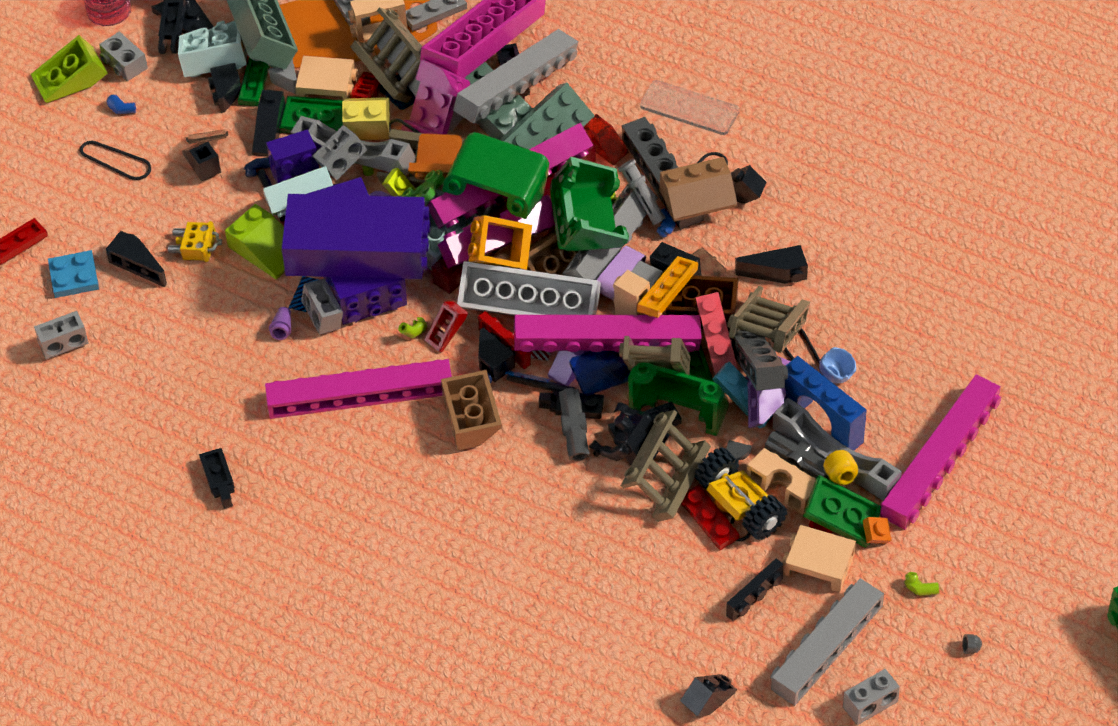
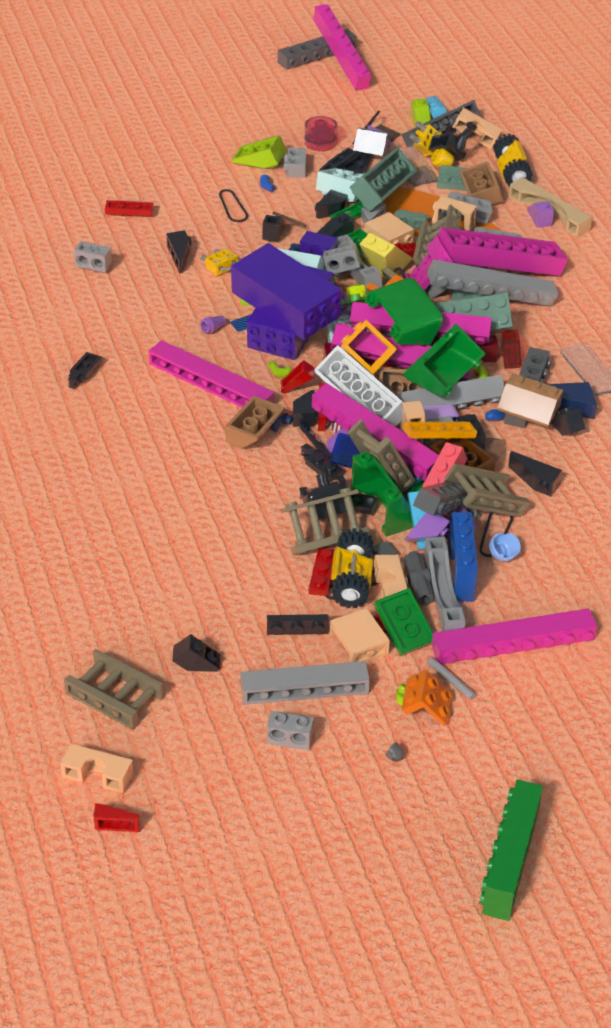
camera: 40 degrees right, 10 degrees down
(73, 274) = (141, 239): dark azure plate -> none
(322, 306) = (238, 329): light grey brick -> none
(328, 45) = (411, 218): none -> sand green bracket
(573, 424) = (303, 469): dark grey piece -> none
(637, 183) = (493, 372): light grey pin -> none
(722, 144) = (578, 396): none -> dark blue slope
(840, 467) = (429, 594): yellow head -> none
(877, 530) = (414, 648): orange plate -> none
(933, 534) = (451, 678): none -> light grey bar
(941, 570) = (427, 692): none -> orange bracket

